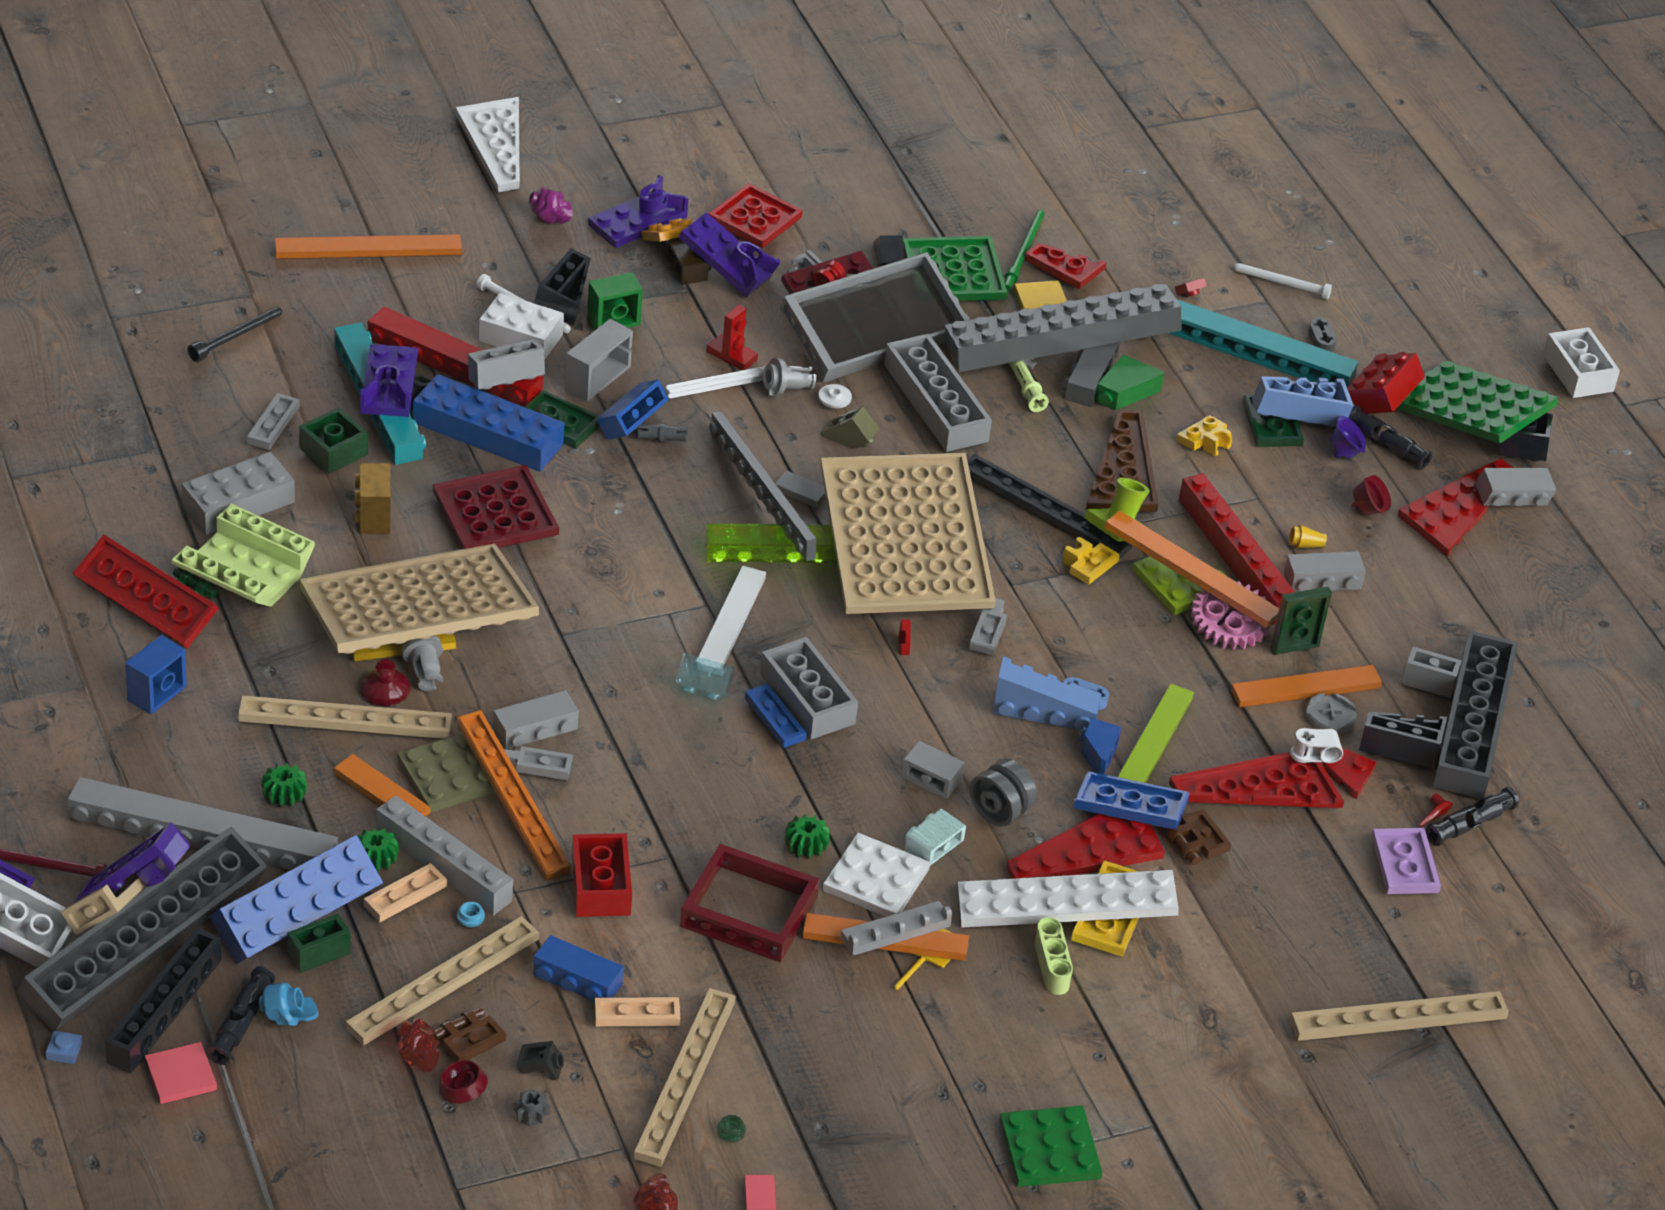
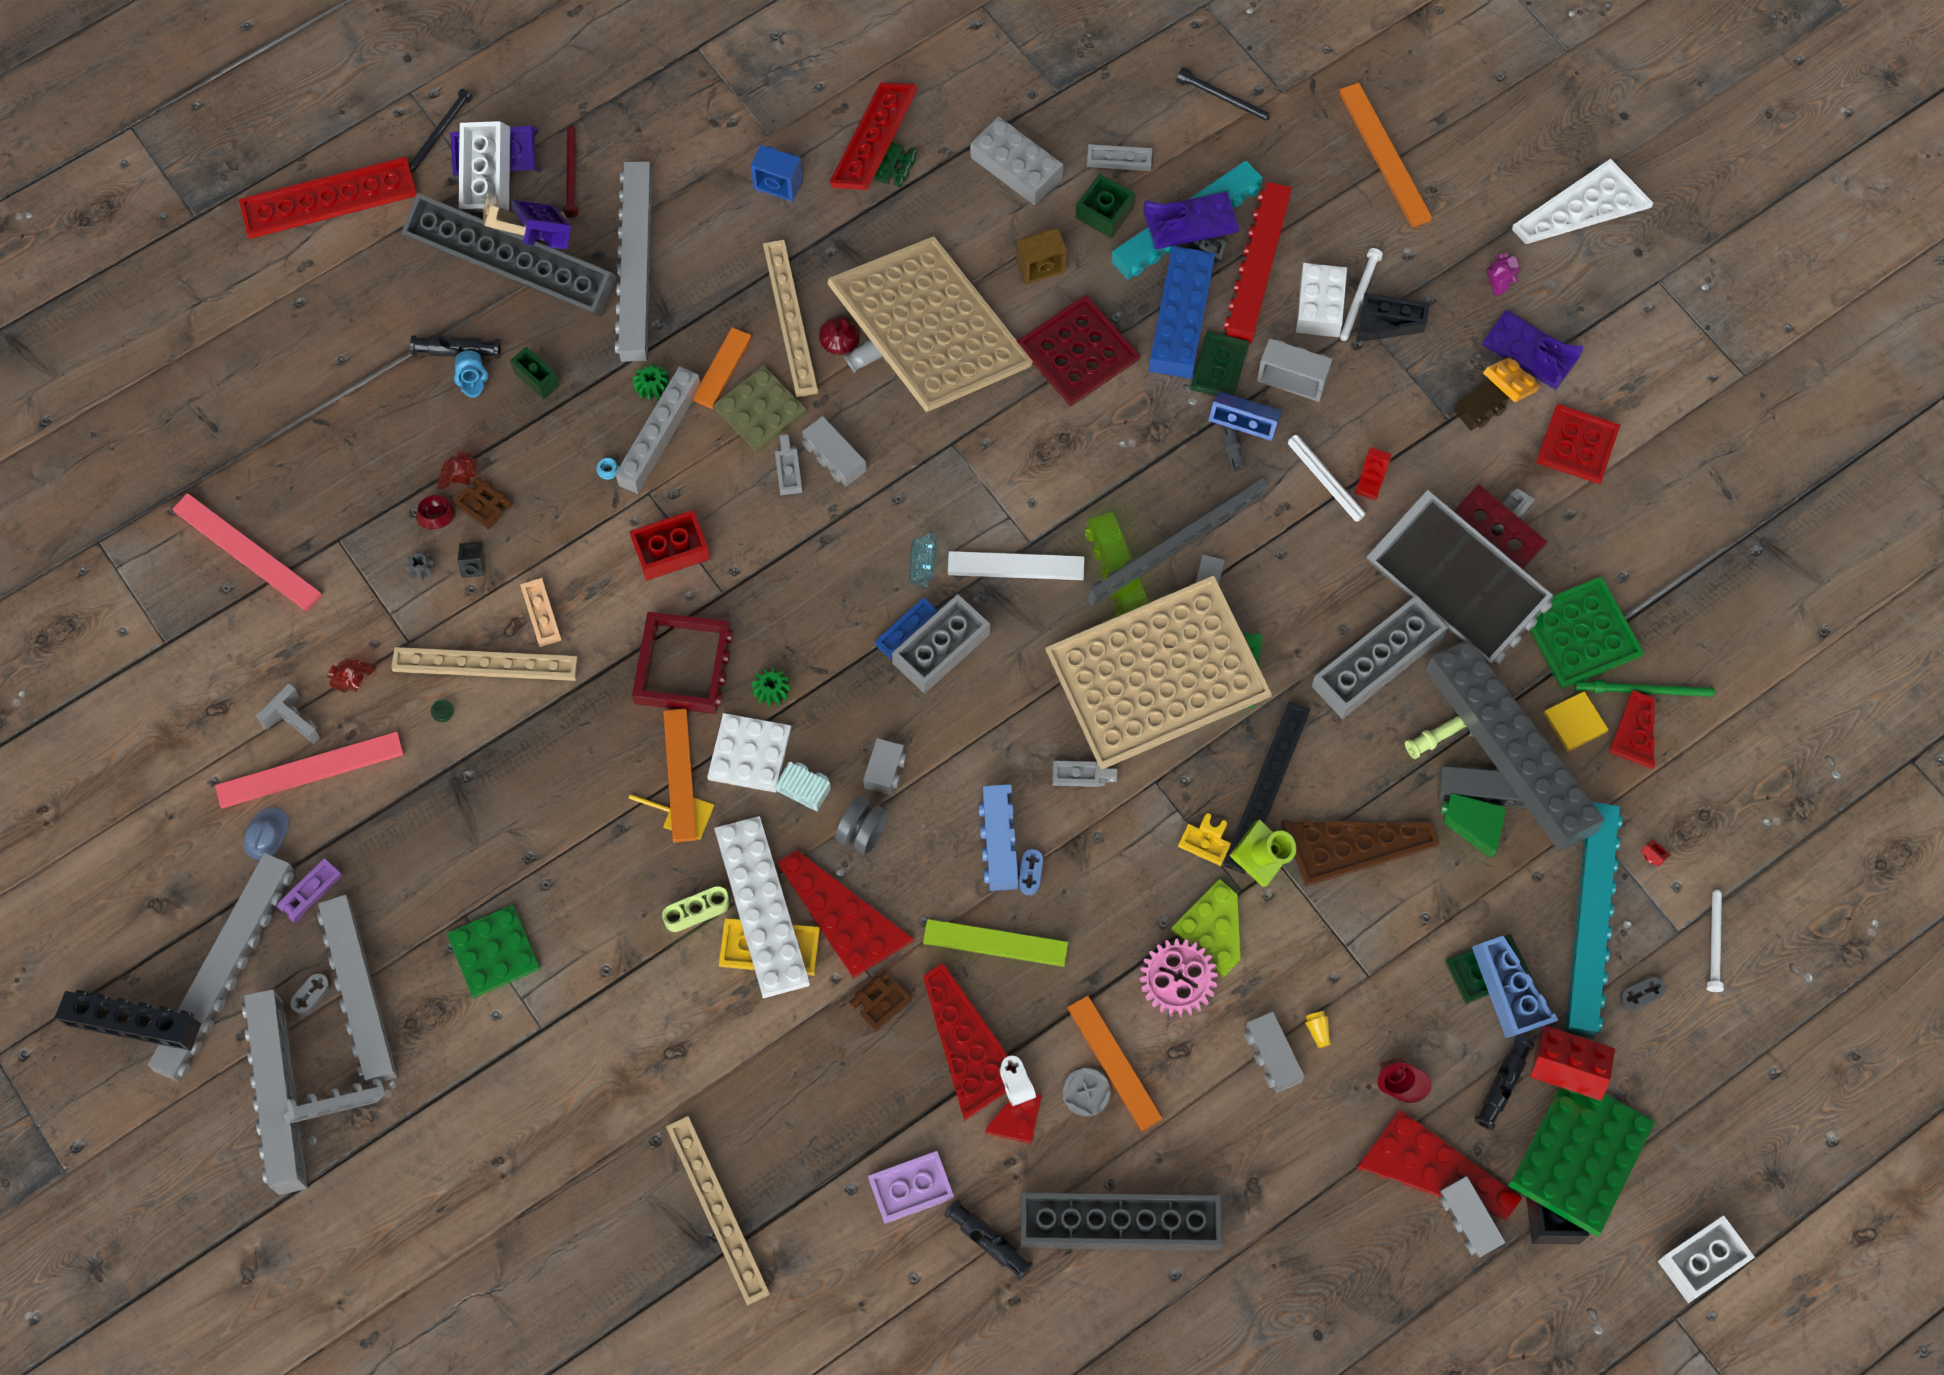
camera: 80 degrees right, 25 degrees up
(64, 1047) = (396, 248): medium blue plate -> none
(163, 1000) = (447, 291): black brick -> none
(180, 1072) = (393, 327): coral tile -> none
(249, 556) = (934, 191): yellowish green slope -> none
(284, 785) = (699, 299): green gear -> none
(296, 899) = (569, 343): brick -> none
(405, 892) = (613, 415): light nougat plate -> none
(442, 980) = (533, 469): tan plate -> none
(506, 364) = (1237, 297): light grey brick -> none
(513, 795) = (743, 455): orange tile -> none
(577, 969) = (567, 558): blue brick -> none
(615, 299) = (1379, 360): green brick -> none
(729, 256) = (1493, 432): dark purple plate -> none
(780, 377) = (1343, 519): light grey piece -> none
(831, 272) = (1490, 524): red wheel -> none
(835, 396) = (1346, 575): white piece -> none
(851, 428) = (1300, 598): olive slope -> none
(888, 249) = (1577, 568): black slope -> none
(896, 928) = (682, 778): light grey hinge -> none
(904, 637) = (1044, 708): red tile -> none
(1100, 744) = (962, 896): blue slope -> none
(1131, 800) = (899, 935): blue tile -> none
(1192, 569) = (1207, 927): orange tile -> none
(1206, 433) = (1434, 909): yellow plate -> none
(1232, 539) = (1273, 966): red brick -> none
(1301, 620) = (1170, 1036): dark green tile -> none
(1347, 439) = (1482, 1043): dark purple piece -> none
(1403, 739) = (1062, 1159): black wedge -> none
(1431, 672) = (1162, 1169): light grey brick -> none
(1442, 807) = (990, 1209): red bar -> none

